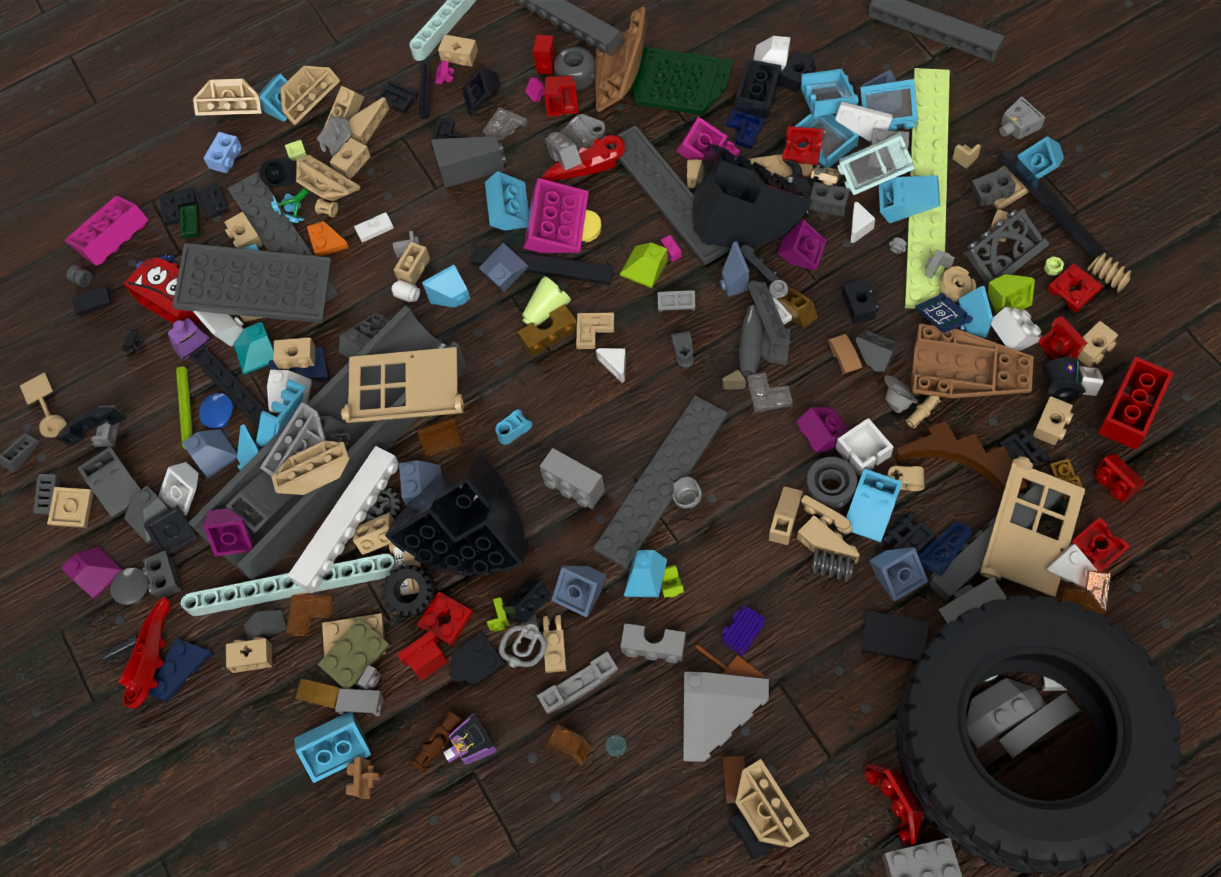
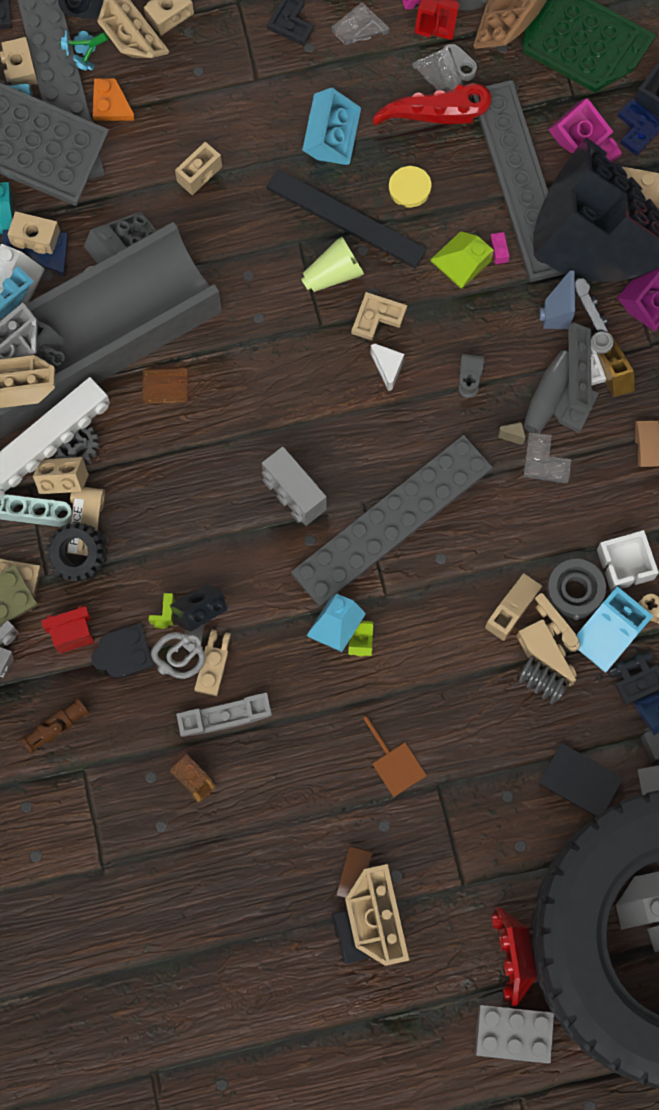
camera: 10 degrees right, 10 degrees up
(326, 207) = (123, 63): tan bush -> none
(373, 227) = (170, 105): white plate -> none
(401, 246) = (192, 143): light grey bracket -> none
(405, 291) = (181, 198): white brick -> none
(416, 477) = (128, 433): sand blue slope -> none
(429, 385) = (169, 329): tan door -> none
(439, 607) = (105, 580): red brick -> none
(446, 288) = (228, 212): medium azure slope -> none
(463, 522) = (159, 495): black brick -> none
(468, 158) = (303, 58): dark grey slope -> none
(469, 742) = (89, 738): torso -> none
(503, 267) = (301, 207): sand blue slope -> none
(515, 424) = (254, 402): medium azure piece -> none
(537, 340) = (309, 308): pearl gold arch -> none
(555, 218) = (380, 166): dark pink slope -> none
(563, 150) = (416, 86): light grey arch -> none
(578, 588) = (260, 611): sand blue slope -> none
(615, 745) = (242, 795): clear light blue plate -> none
(669, 648) = (336, 710): light grey arch -> none
(676, 300) = (482, 316): light grey hinge -> none
(688, 492) = (415, 546): light grey hair -> none
(692, 172) = (557, 162): tan brick -> none
(715, 708) = (361, 792): light grey slope -> none
(743, 630) = (420, 718): dark purple brick -> none
(822, 428) = (591, 522): magenta slope -> none
(899, 571) = (612, 712): sand blue slope -> none

